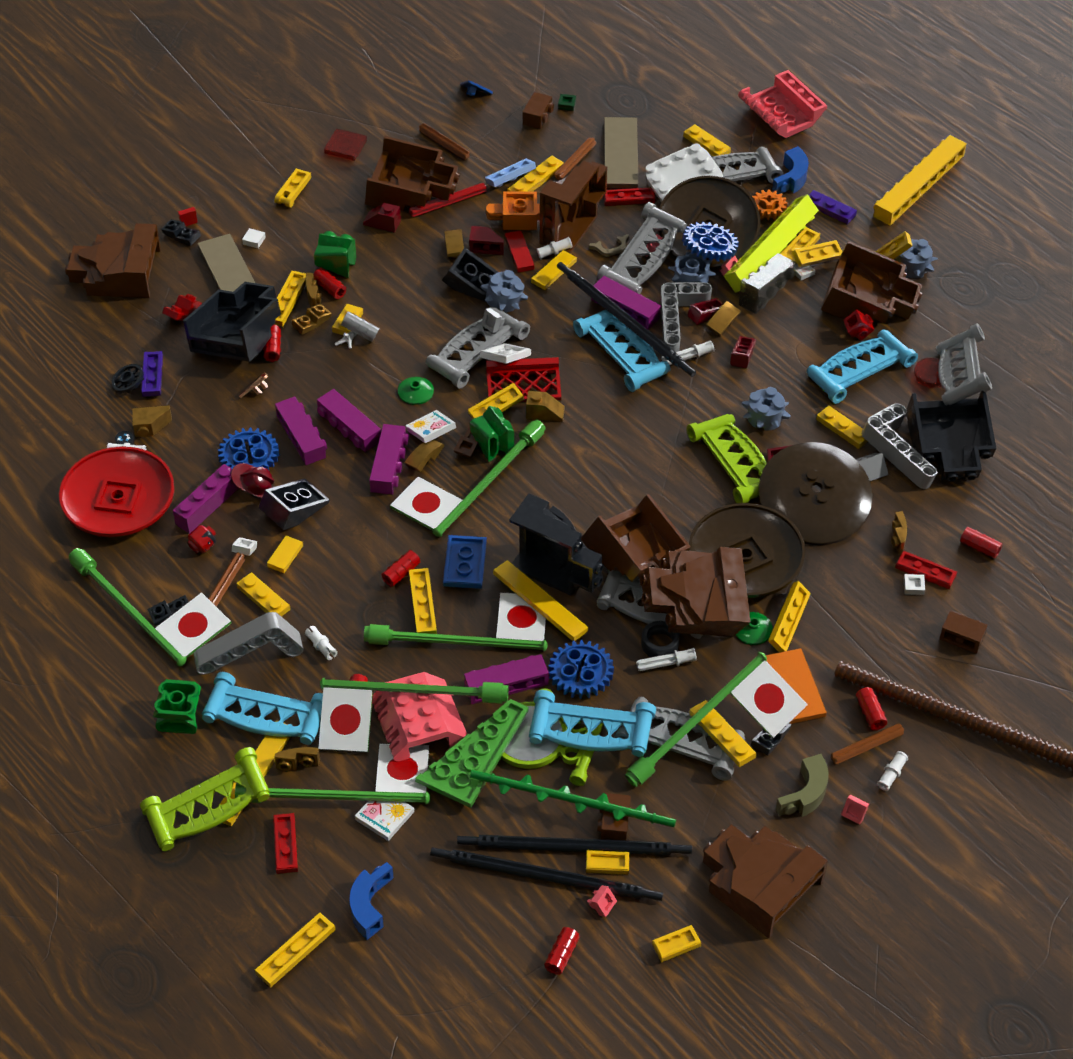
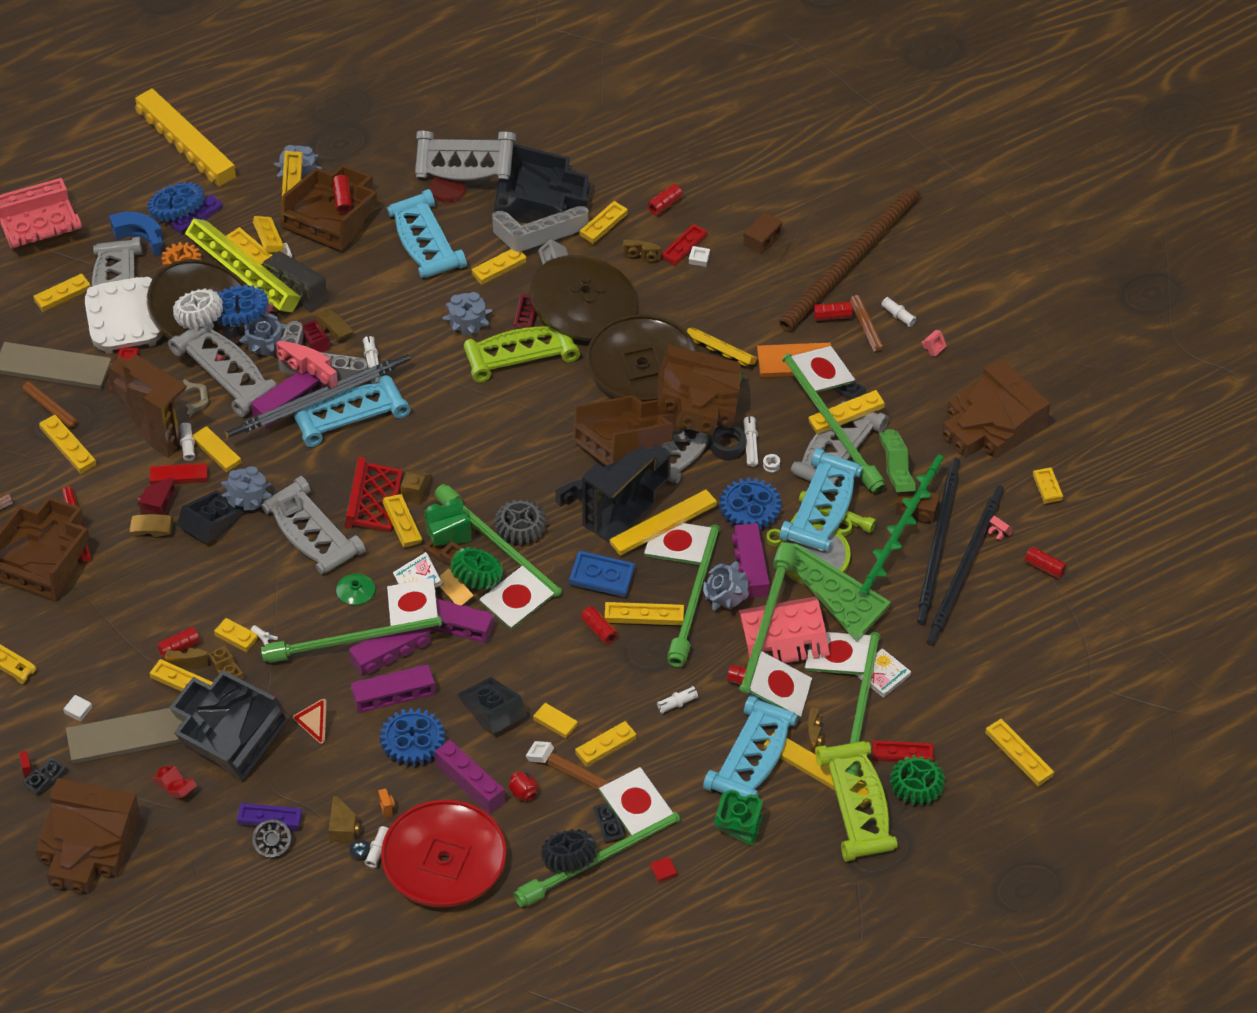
camera: 80 degrees left, 0 degrees up
(120, 660) = (663, 869): none -> red tile
(125, 579) = (569, 851): none -> black gear
(172, 446) = (386, 802): none -> orange plate
(238, 866) = (914, 787): none -> green gear
(243, 640) = (678, 755): light grey beam -> none
(252, 479) = (458, 729): dark red piece -> none
(335, 253) = (143, 626): green piece -> none
(360, 326) = (259, 619): light grey axle -> none
(364, 915) = (977, 698): blue arch -> none
(373, 421) = (410, 608): none -> flag
(384, 217) = (89, 582): dark red slope -> none
(450, 458) = (476, 568): none -> green gear
(459, 656) = (726, 586): none -> sand blue brick
(505, 353) = (337, 500): white tile -> none
(510, 173) = (55, 462): light blue plate -> none
(512, 487) = (519, 516): none -> dark grey gear
(517, 211) = (125, 460): orange brick -> none
(607, 862) = (958, 520): yellow tile -> none
(644, 688) = (772, 467): none -> white bush
(655, 300) = (307, 359): none -> coral slope
(664, 787) = (897, 461): none -> bright green bracket
(688, 210) = (198, 308): none -> white gear
(741, 353) = (388, 325): dark red slope -> none
(808, 799) = (909, 364): olive arch -> none
(834, 186) = (176, 201): none -> blue gear
(859, 325) = (377, 230): red brick -> none
(883, 290) = (342, 194): none -> red axle
(930, 497) = (603, 222): none -> yellow plate

